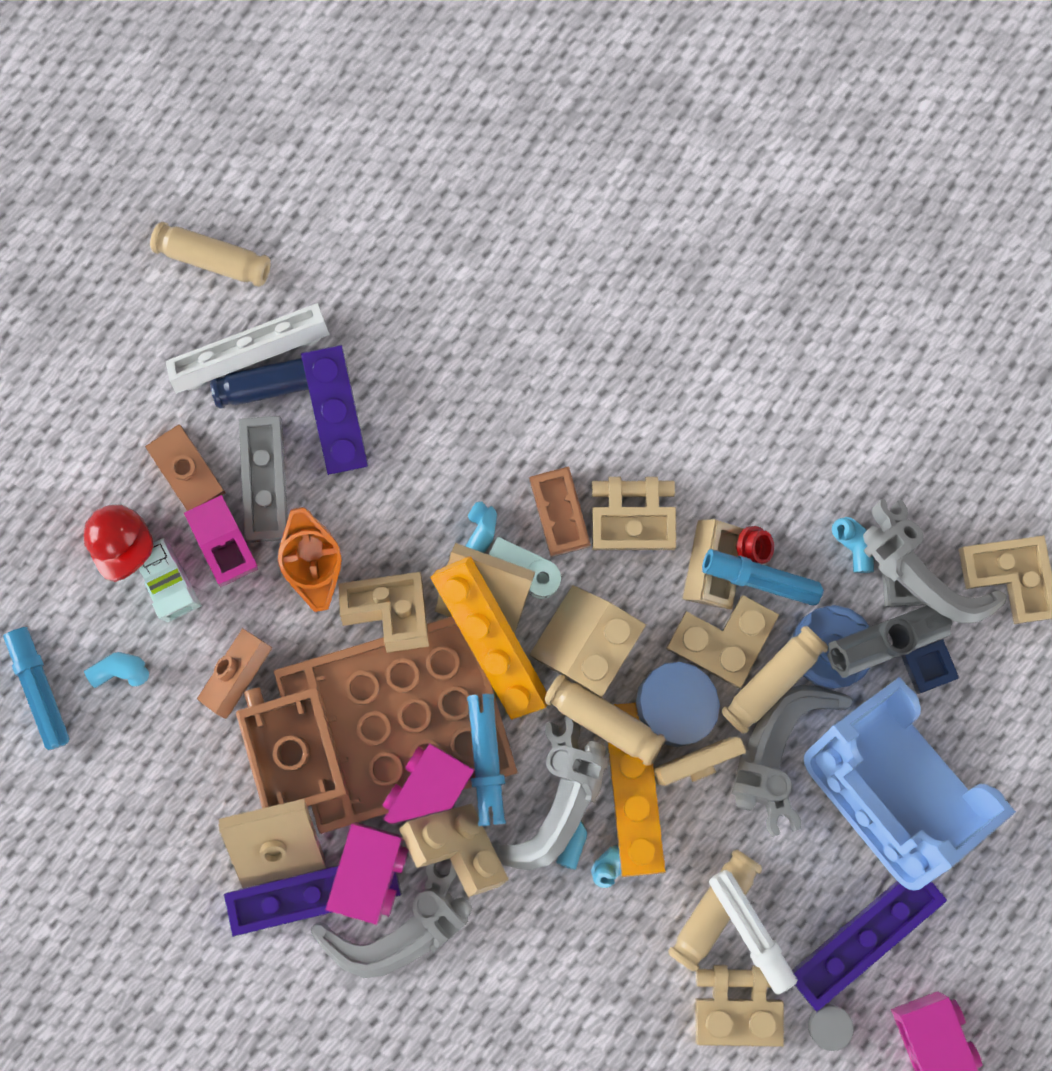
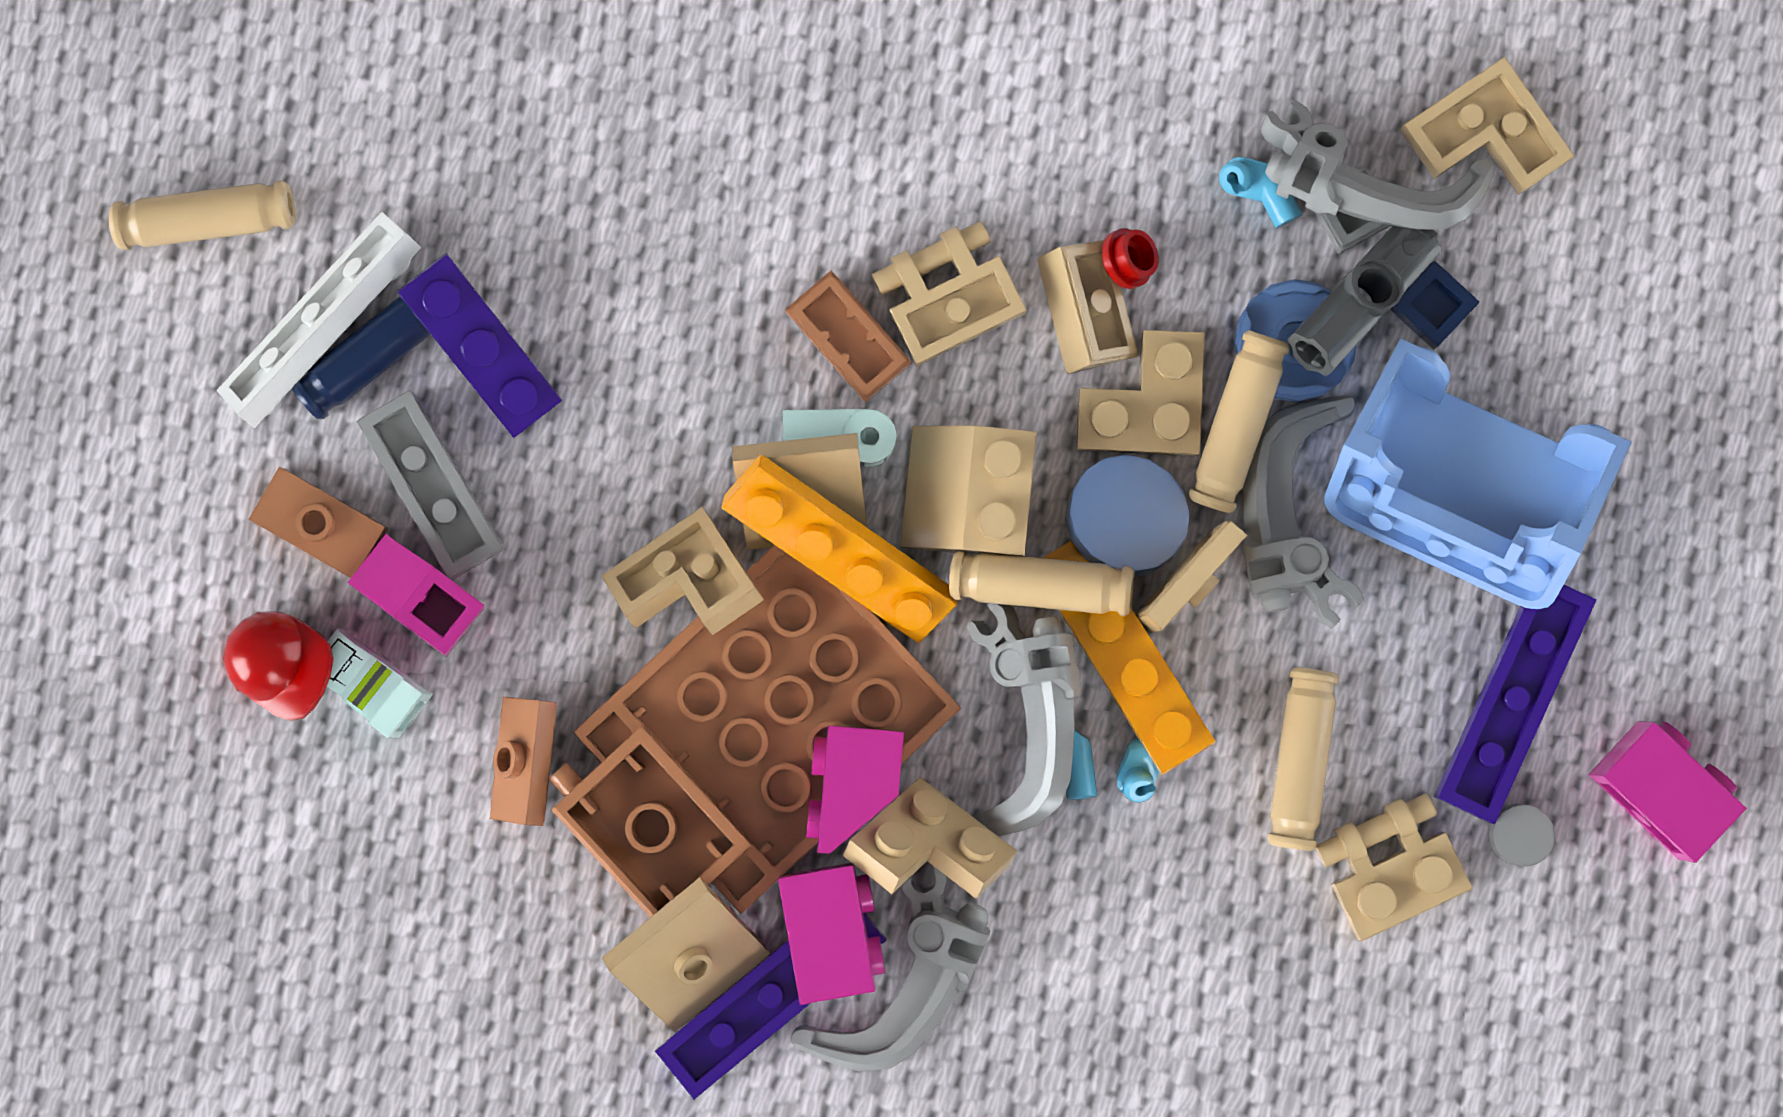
camera: 20 degrees left, 5 degrees up
(29, 669) = (246, 887): dark azure axle -> none
(118, 665) = (366, 825): medium azure arm -> none
(309, 558) = (548, 561): orange hat -> none
(484, 532) = (762, 413): medium azure arm -> none
(486, 760) = (912, 711): dark azure pin -> none
(744, 572) = (1131, 298): dark azure axle -> none
(764, 951) = (1390, 779): white axle -> none

